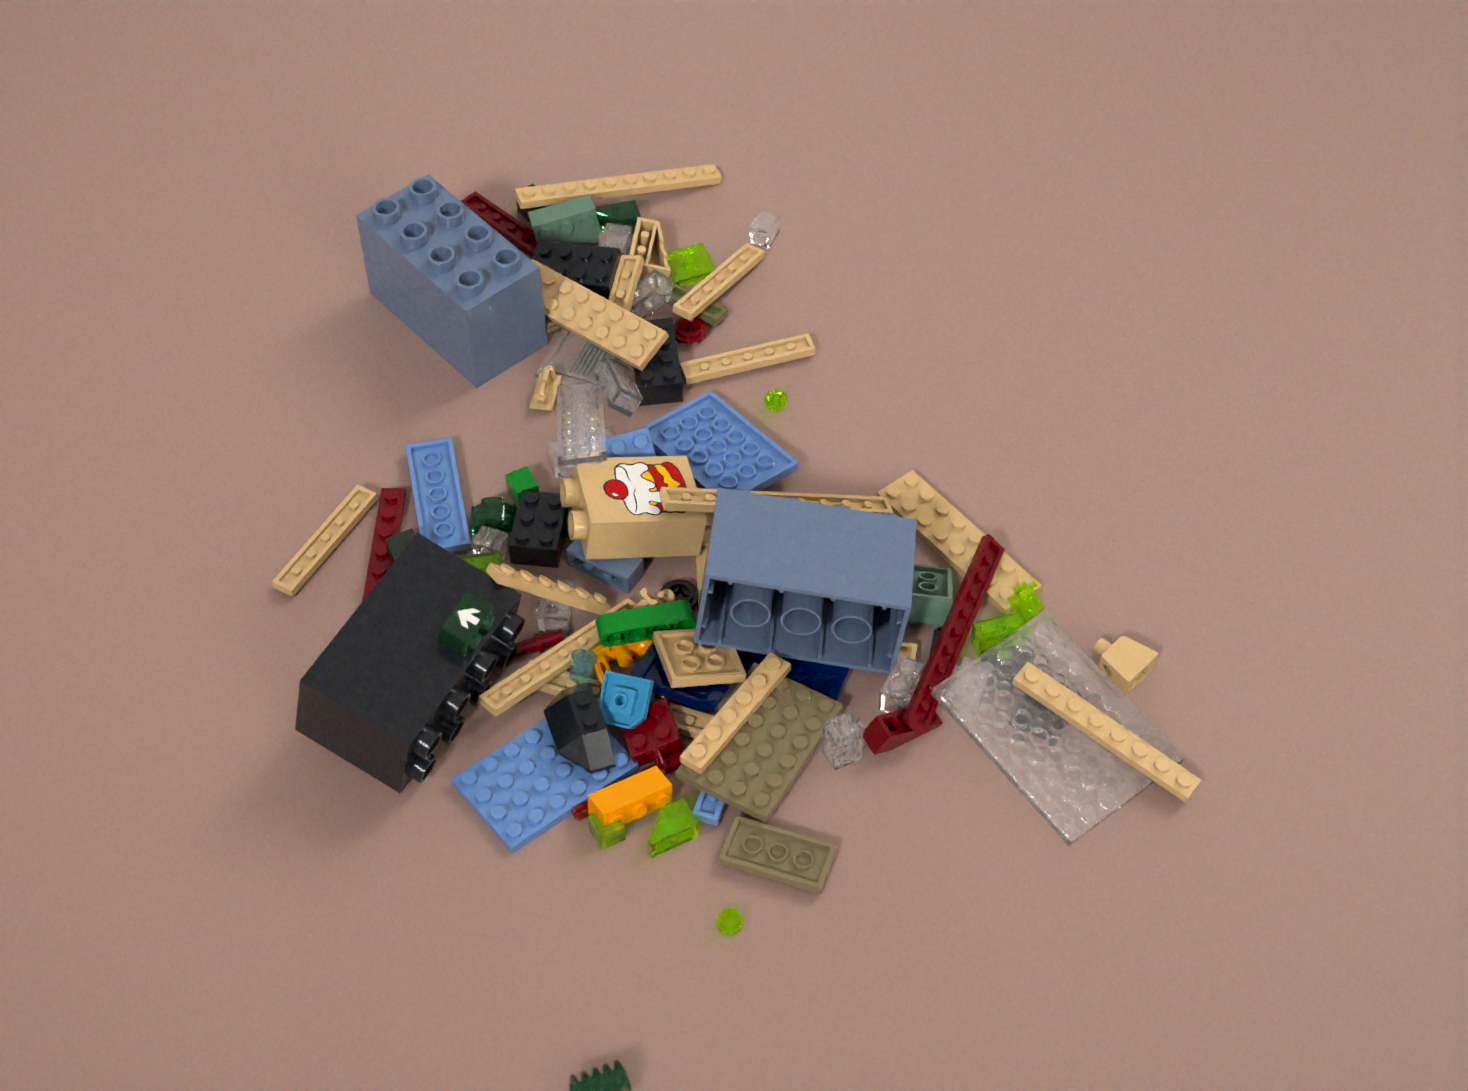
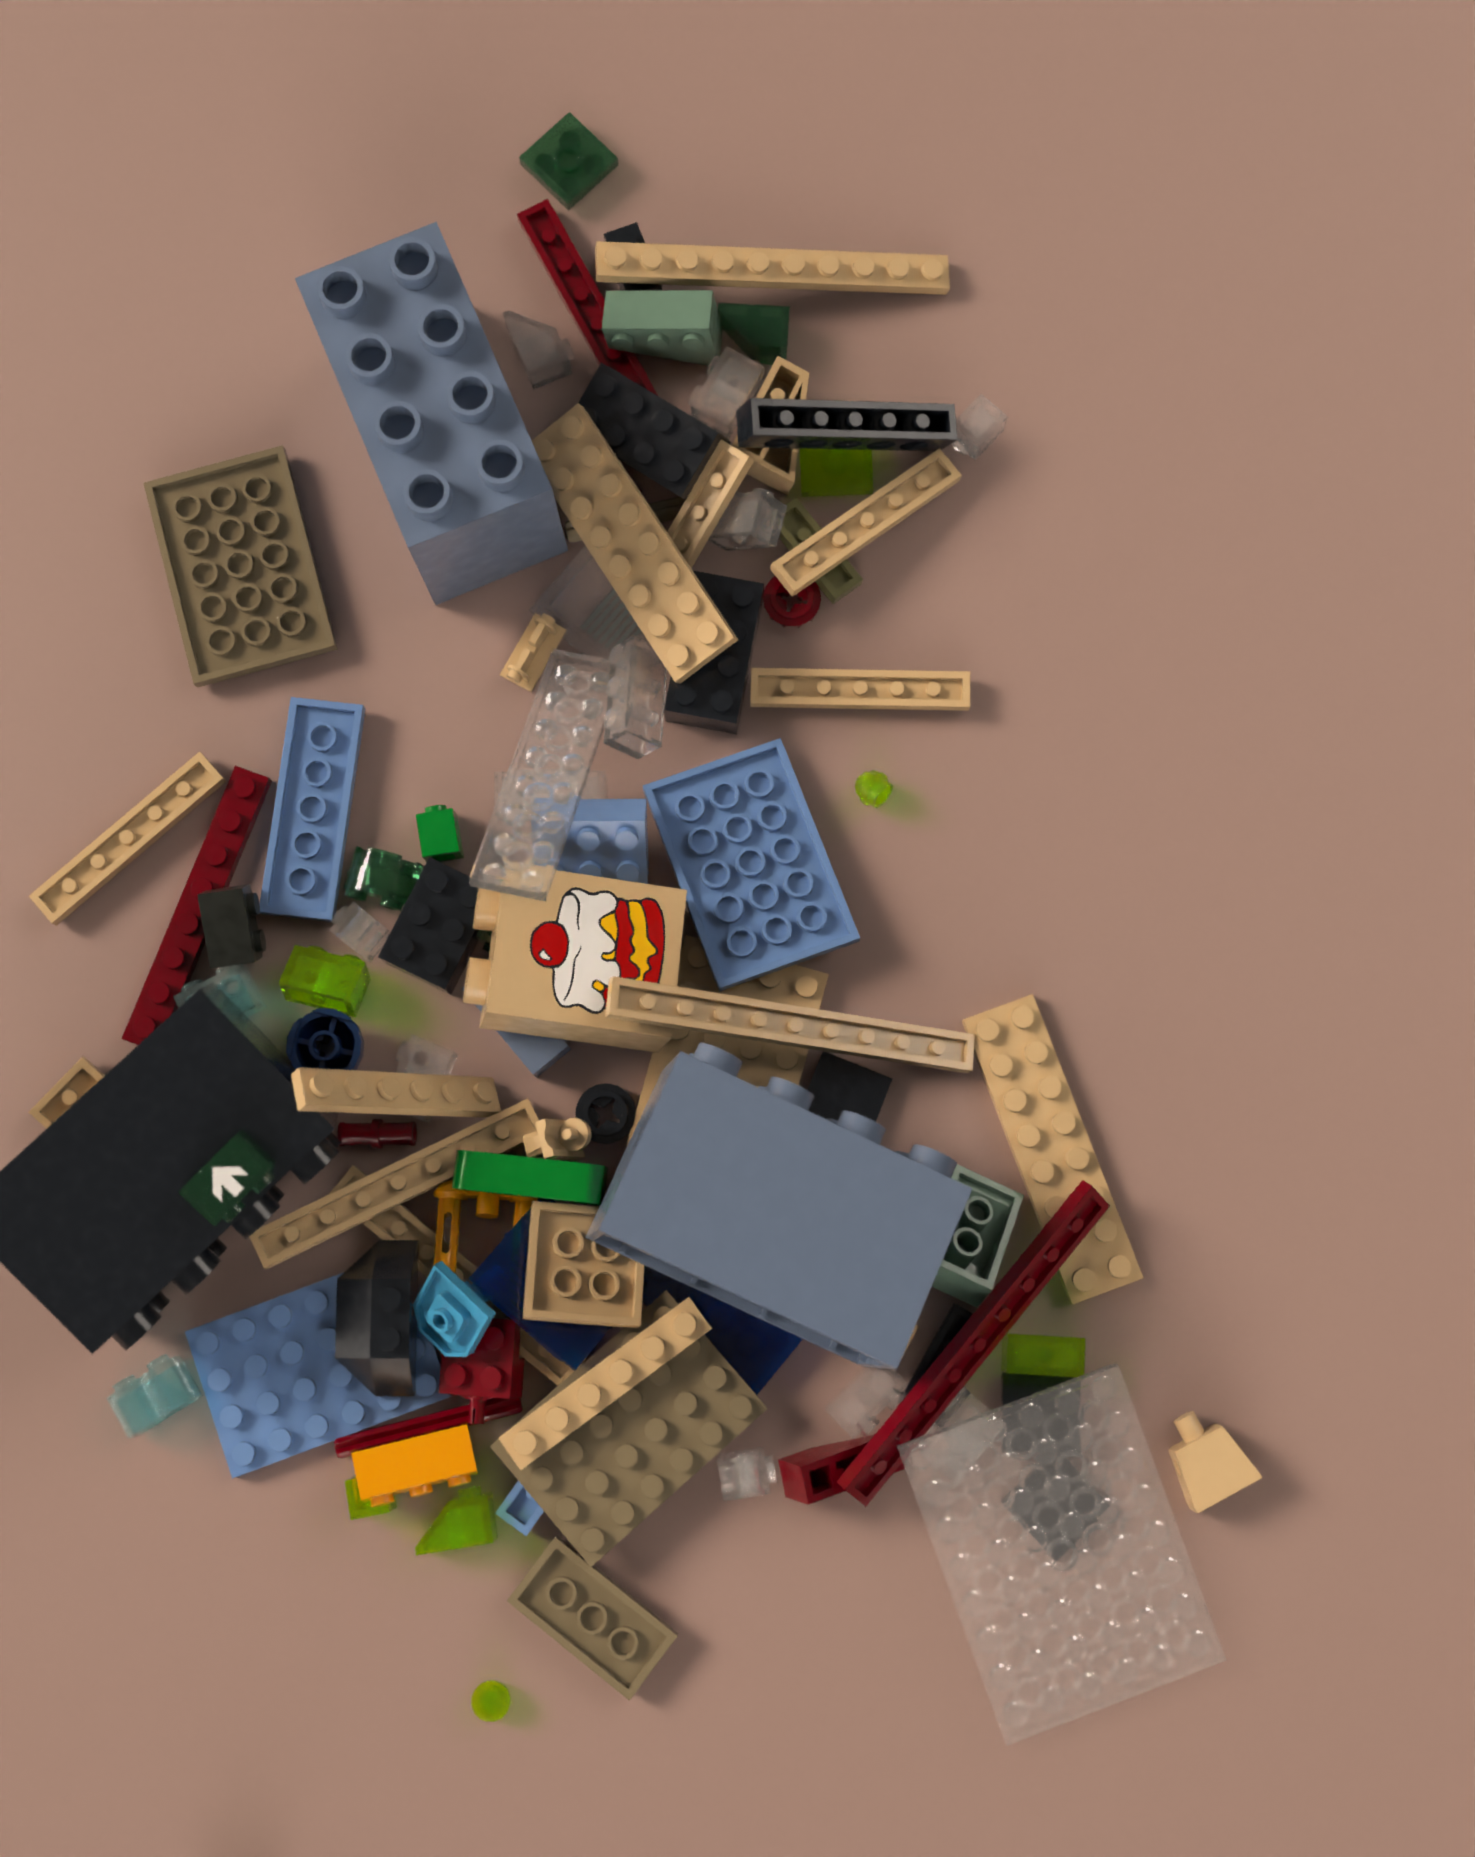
camera: 20 degrees right, 30 degrees up
(351, 395) = (240, 566): none -> dark tan plate
(443, 817) = (153, 1396): none -> clear light blue brick
(480, 174) = (568, 161): none -> clear green plate
(582, 666) = (415, 1223): clear light blue wheel -> none
(689, 234) = (845, 425): none -> black brick
(1025, 600) = (1106, 1304): clear neon green bracket -> none
(1106, 731) = (1126, 1593): tan plate -> none

